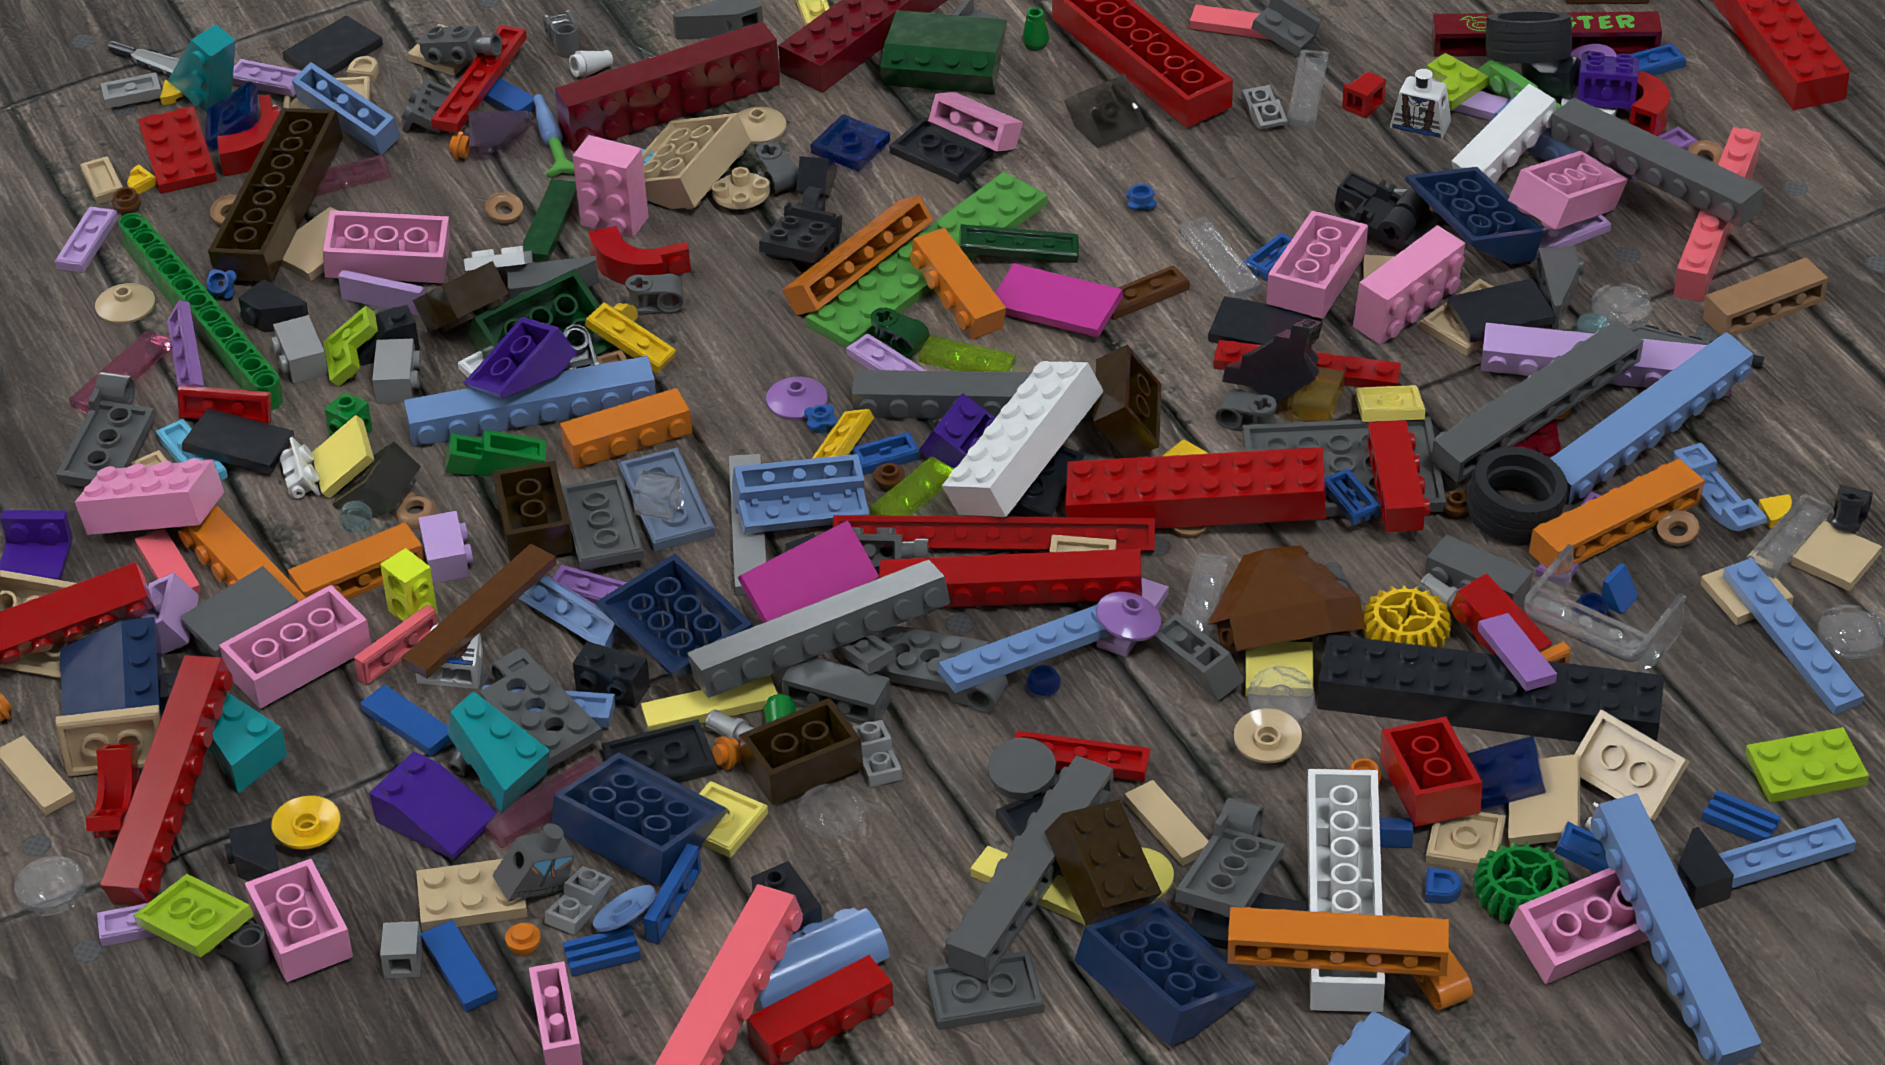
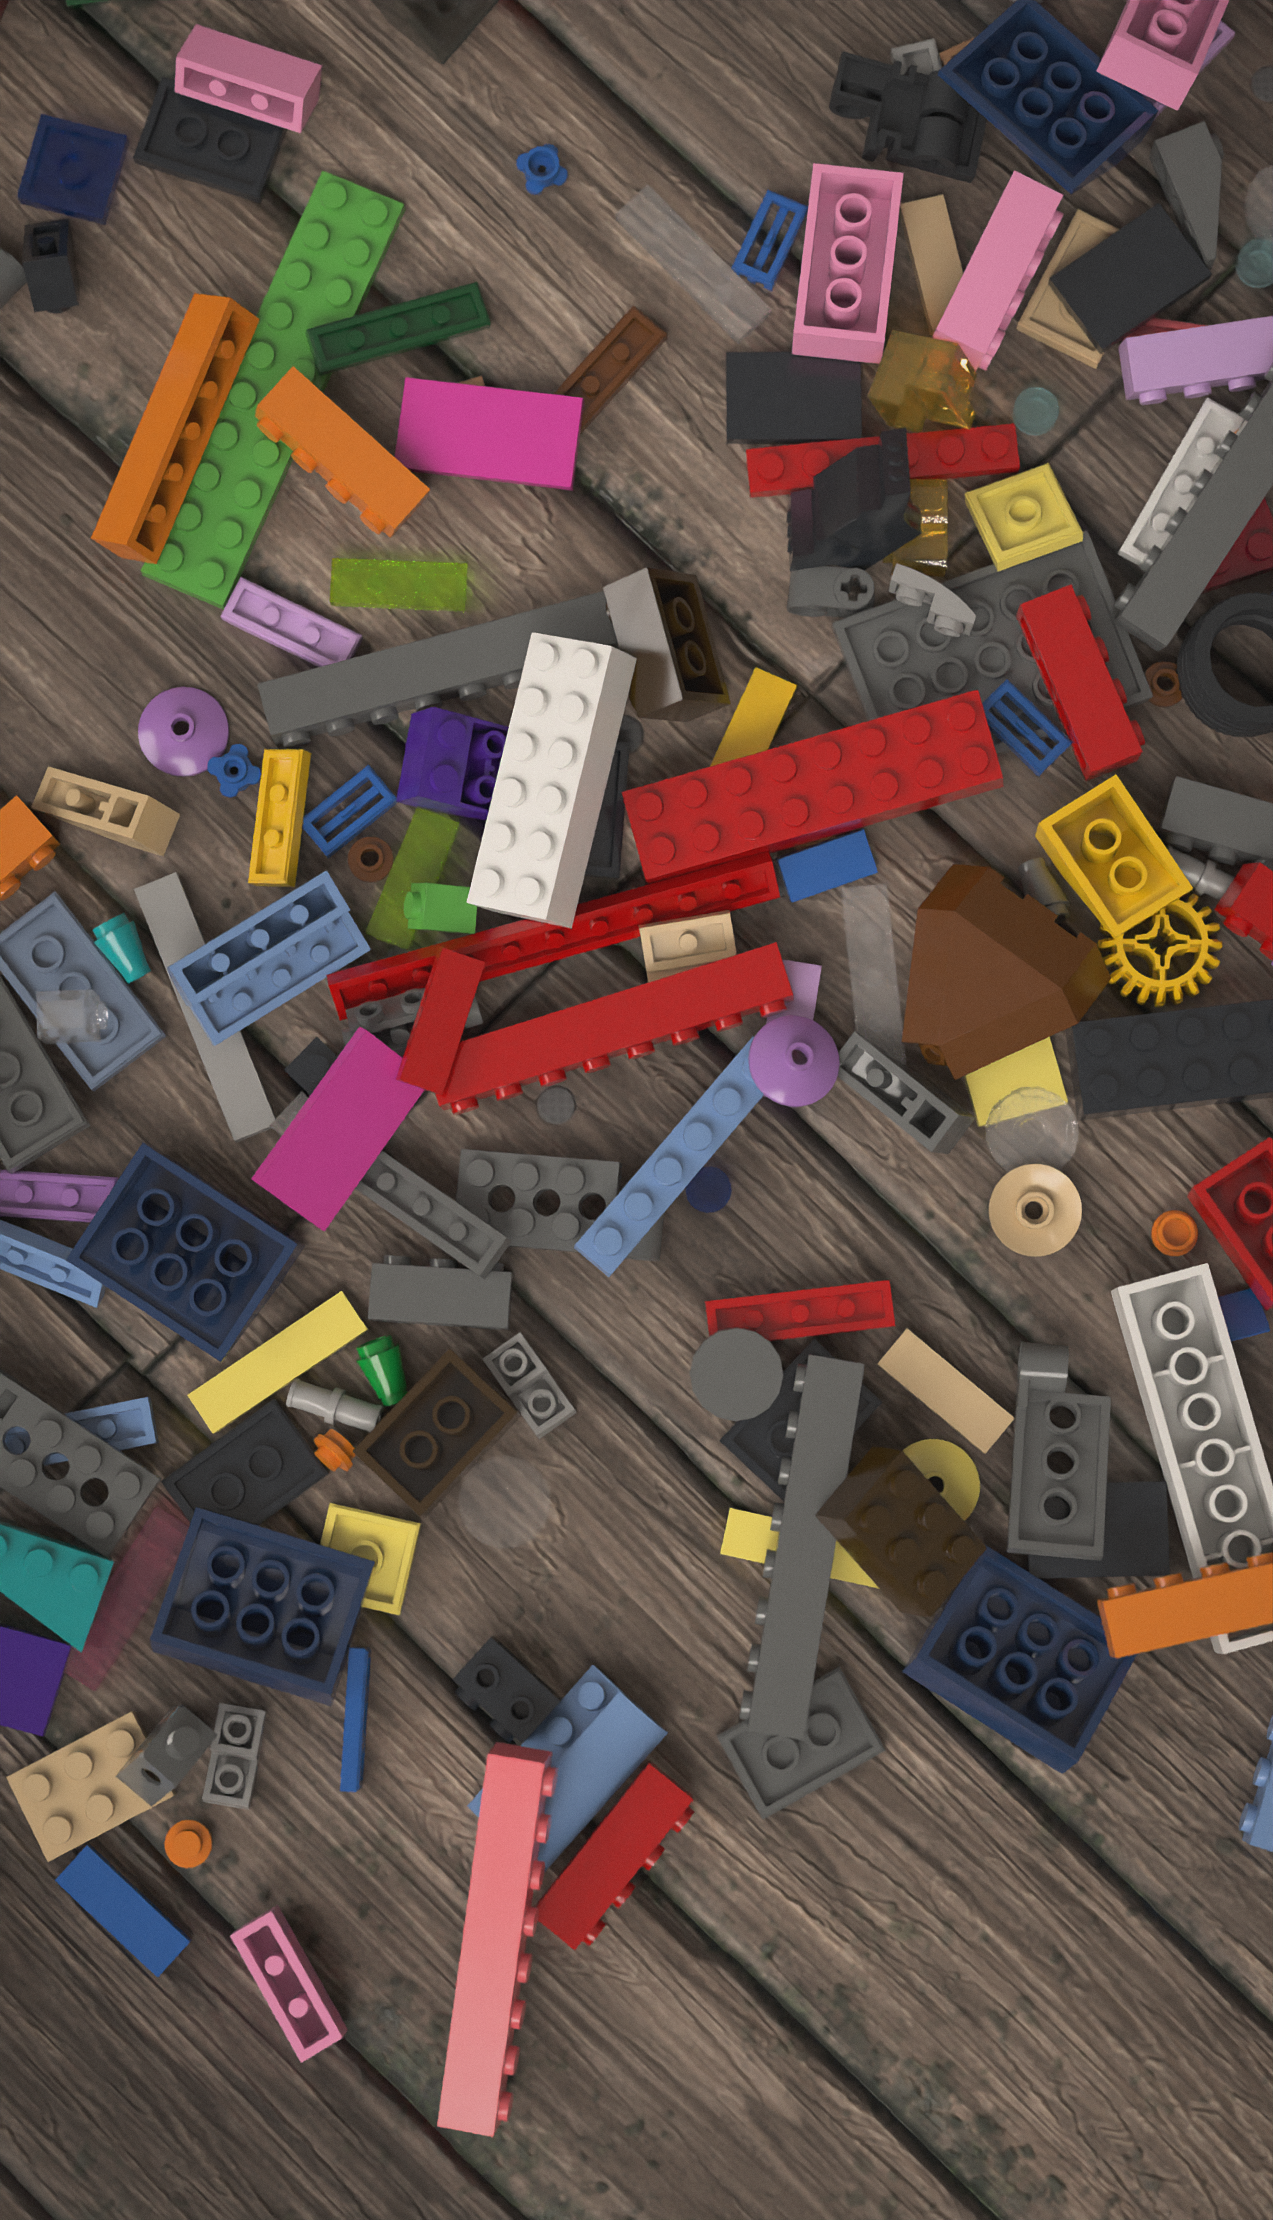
camera: 15 degrees left, 40 degrees up
(401, 949) = (42, 1917): light grey brick -> none
(600, 946) = (263, 1853): blue tile -> none
(611, 672) = (130, 1363): black brick -> none
(625, 909) = (303, 1766): medium blue dish -> none
(707, 477) = (122, 946): none -> teal cone
(734, 415) = (106, 810): none -> tan slope
(804, 231) = (75, 399): black plate -> none
(818, 628) = (392, 1229): dark grey brick -> none
(898, 537) = (440, 1020): none -> red tile
(900, 332) = (293, 570): dark green piece -> none
(923, 496) = (440, 908): none -> bright green brick
(1188, 539) = (826, 865): none -> blue tile
(1309, 413) = (947, 610): none -> light grey slope
(1348, 323) = (922, 381): none -> clear yellow plate
(1384, 557) = (1112, 857): none -> yellow slope
(1417, 363) = (1035, 411): none -> clear light blue tile

